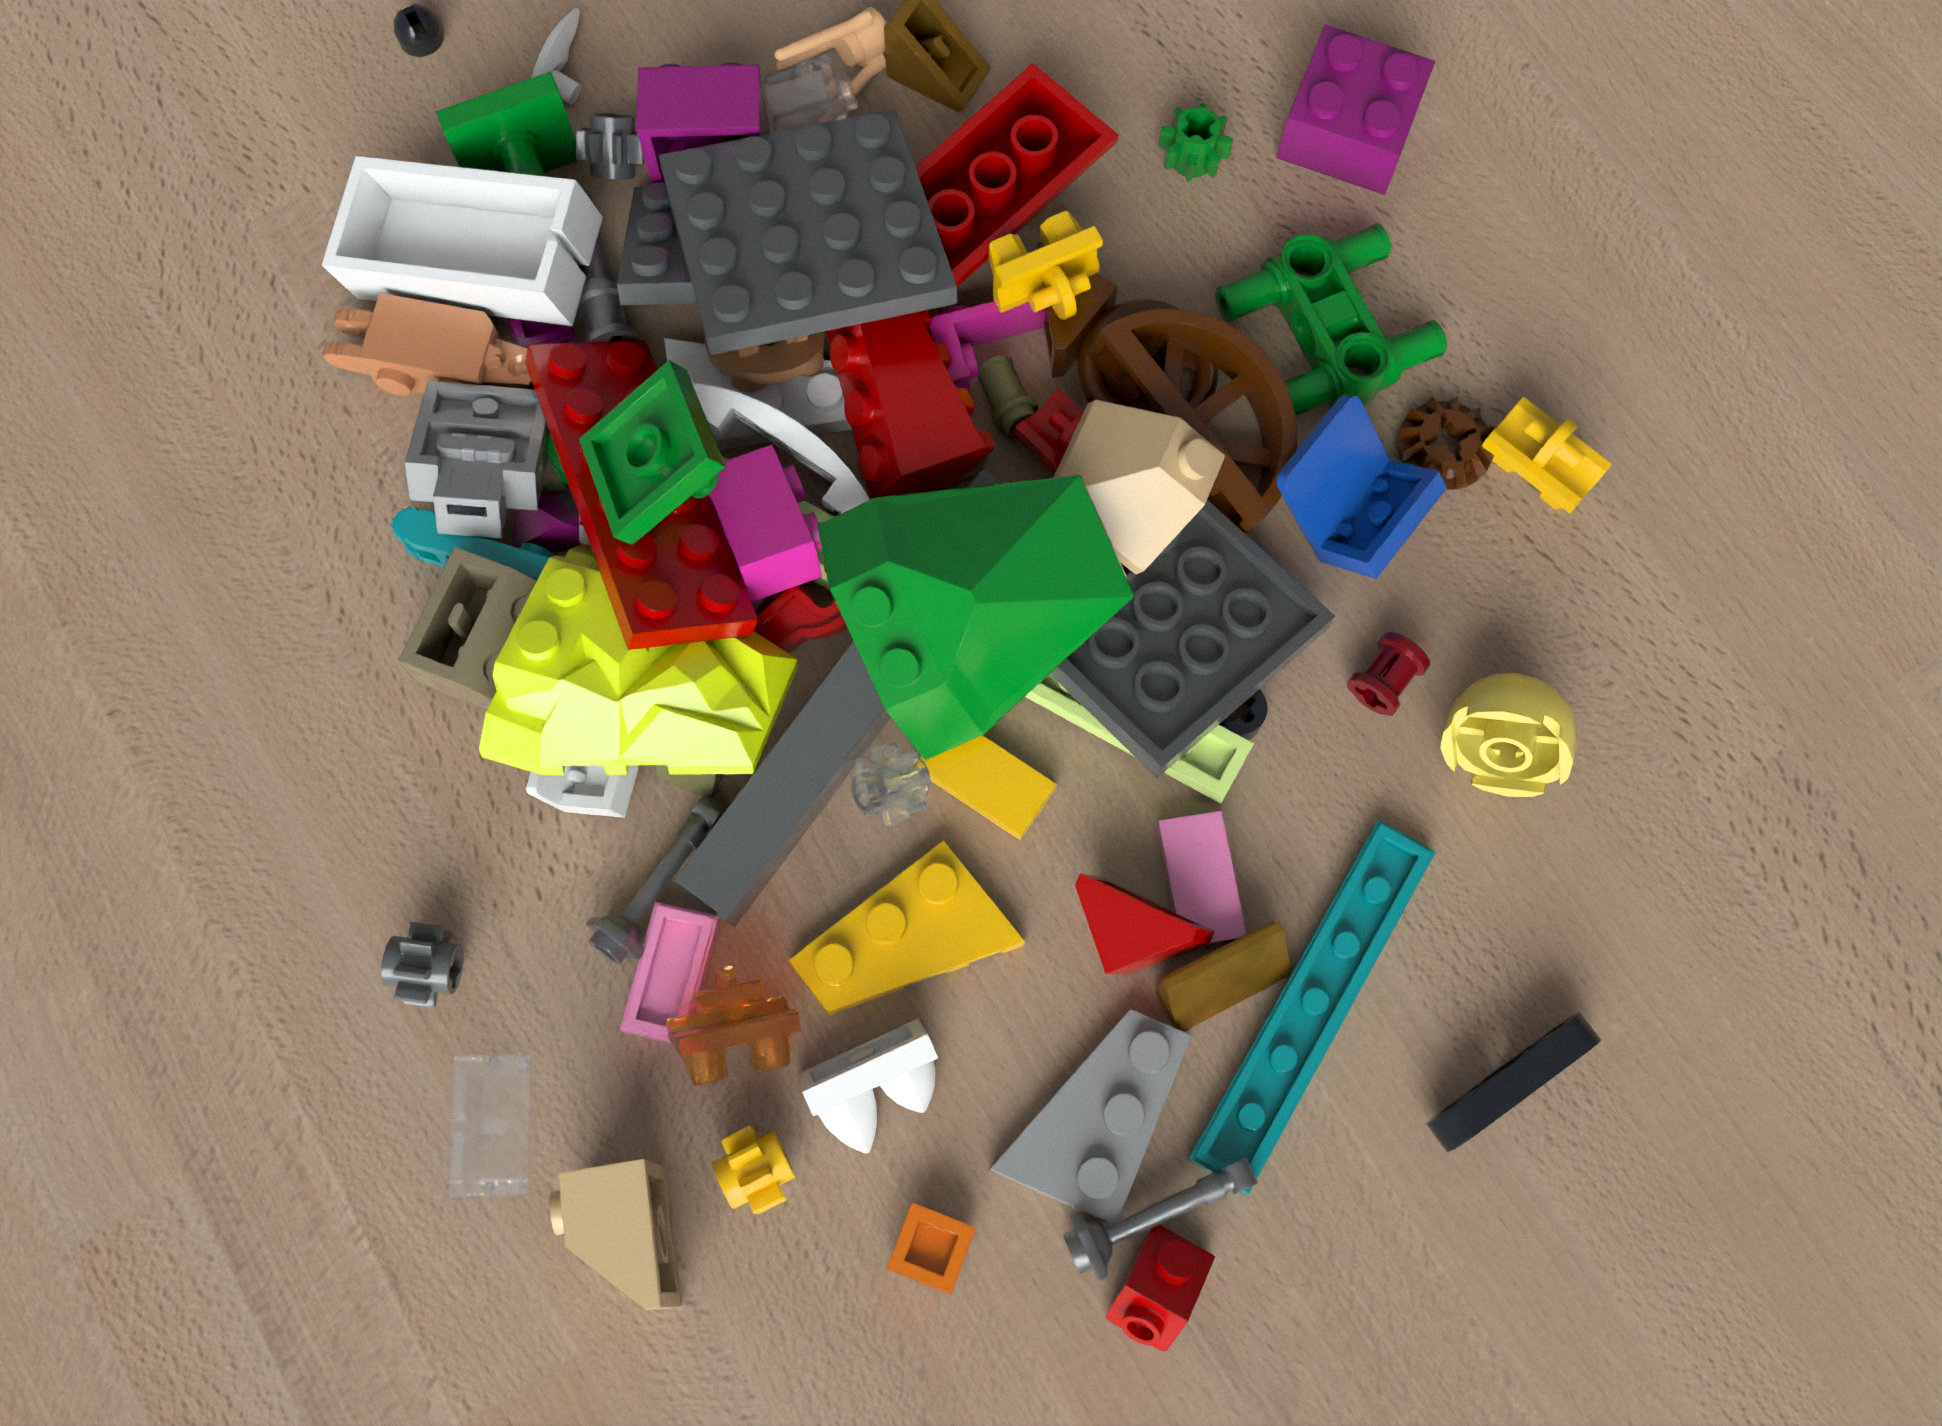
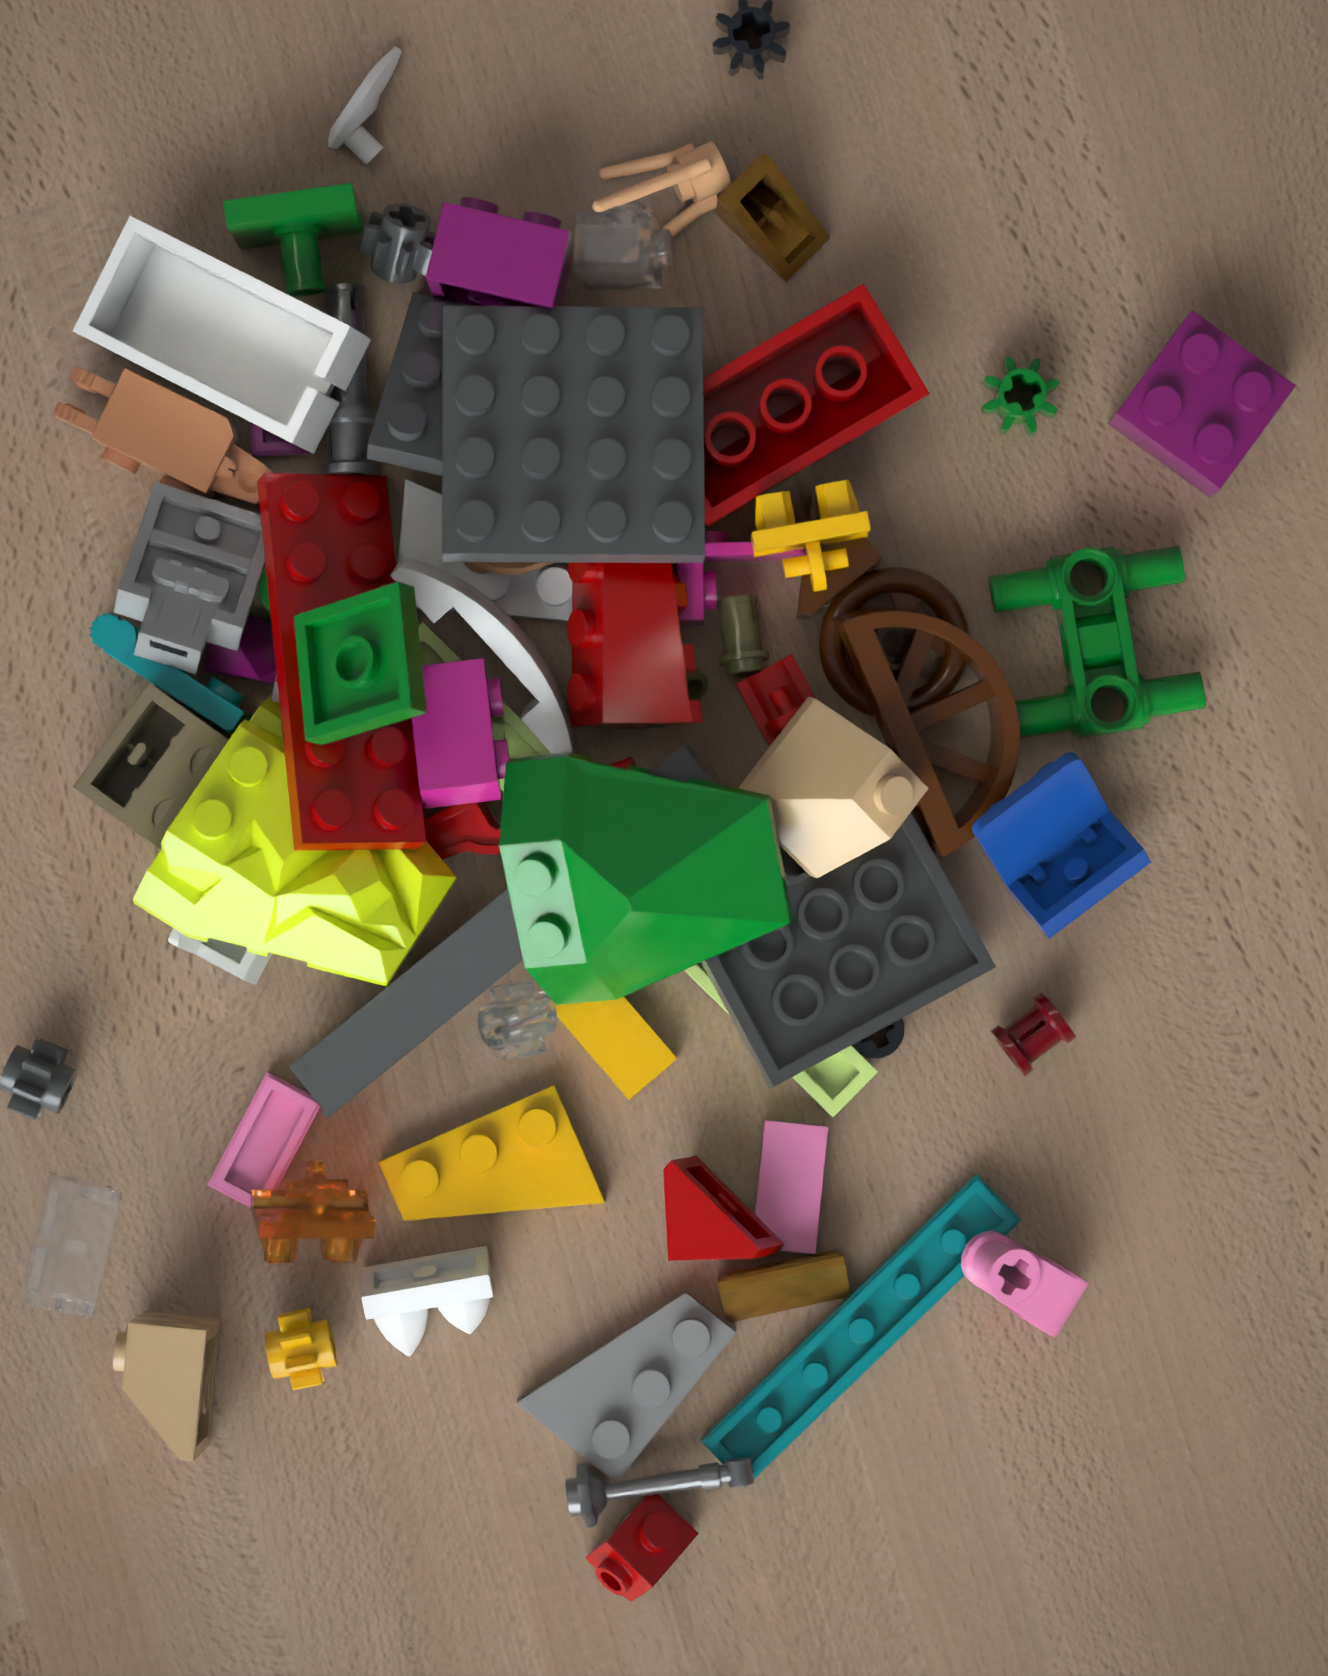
camera: 20 degrees right, 15 degrees up
(425, 43) = (234, 26): black hinge -> none
(616, 934) = (225, 1095): flat silver piece -> none
(931, 1248) = (444, 1459): orange plate -> none
(1423, 428) = (1155, 825): reddish brown gear -> none
(1460, 905) = (1023, 1281): none -> bright pink piece
(1511, 735) = (1130, 1126): light yellow cylinder -> none
(1513, 1082) = (1020, 1453): black beam -> none
(1546, 455) = (1265, 852): yellow hips -> none

